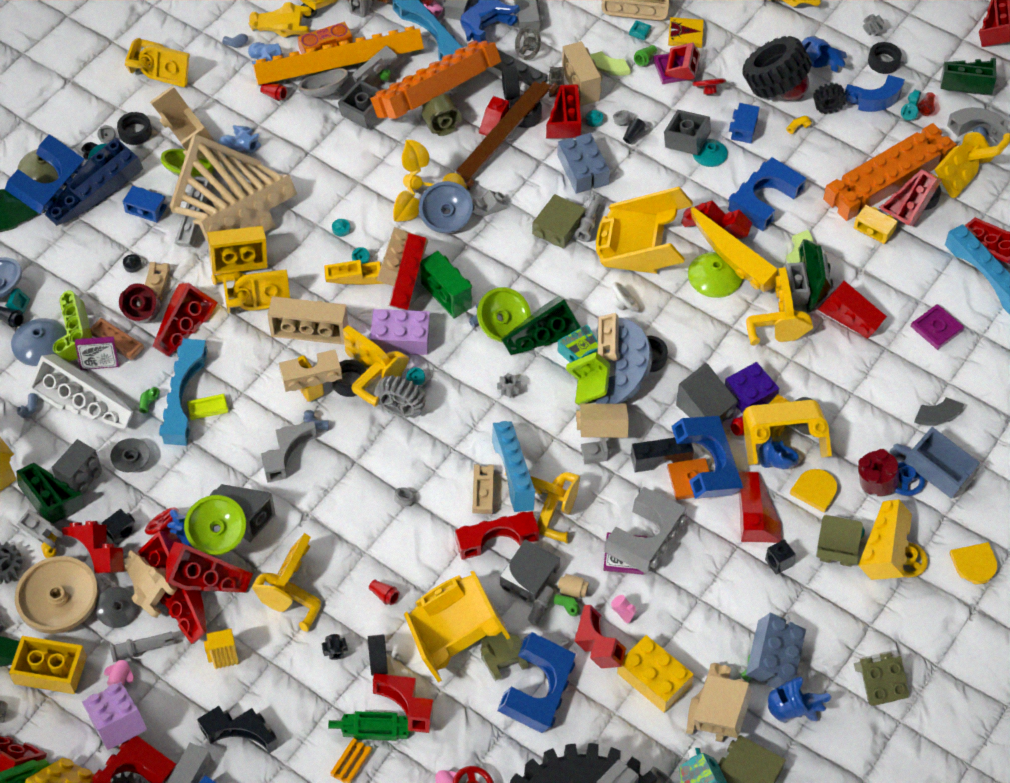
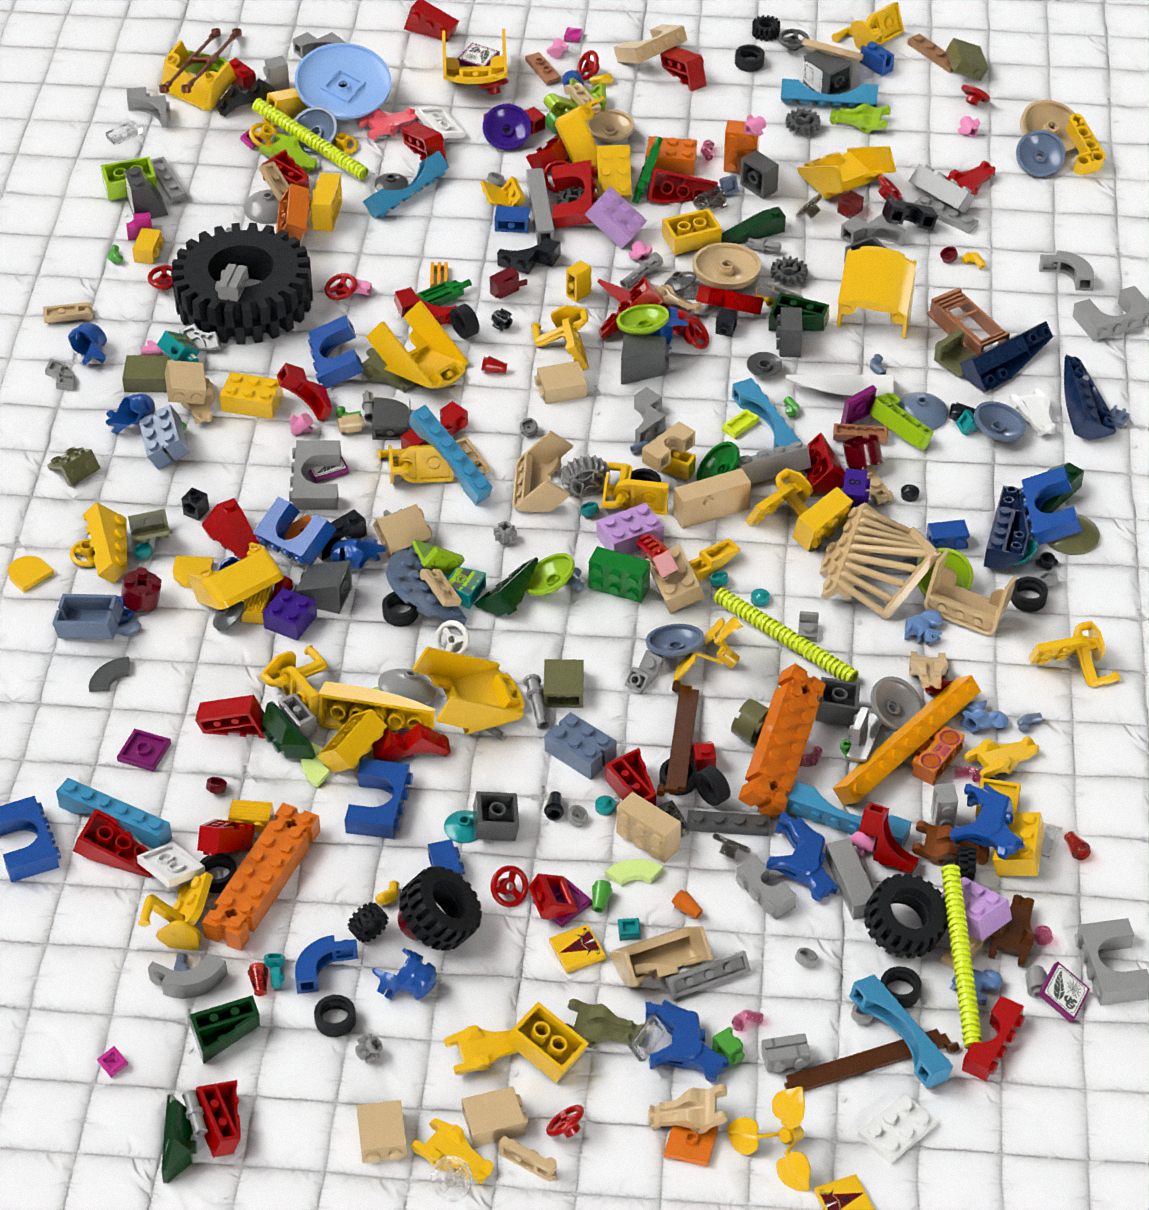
camera: 150 degrees right, 10 degrees down
(188, 263) = (855, 486): none -> dark purple brick
(225, 334) = (768, 464): none -> light grey brick
(271, 99) = (929, 669): none -> tan animal
(280, 339) = (719, 460): none -> green dish
(295, 696) = (505, 283): none -> dark red piece
(311, 23) = (968, 771): none -> clear pink arm
(327, 183) = (808, 625): none -> light grey bracket
(336, 532) = (561, 382): none -> tan brick
(352, 183) = (785, 635): none -> neon yellow piece
(452, 424) = (533, 473): none -> tan windscreen
(589, 24) = (685, 903): none -> orange cone
(658, 424) = (356, 551): none -> blue piece
(695, 277) = (408, 685): none -> light grey dish
(768, 230) = (352, 741): none -> yellow brick
(891, 264) = (216, 785): none -> dark red tile
(961, 201) = (171, 864): none -> white plate

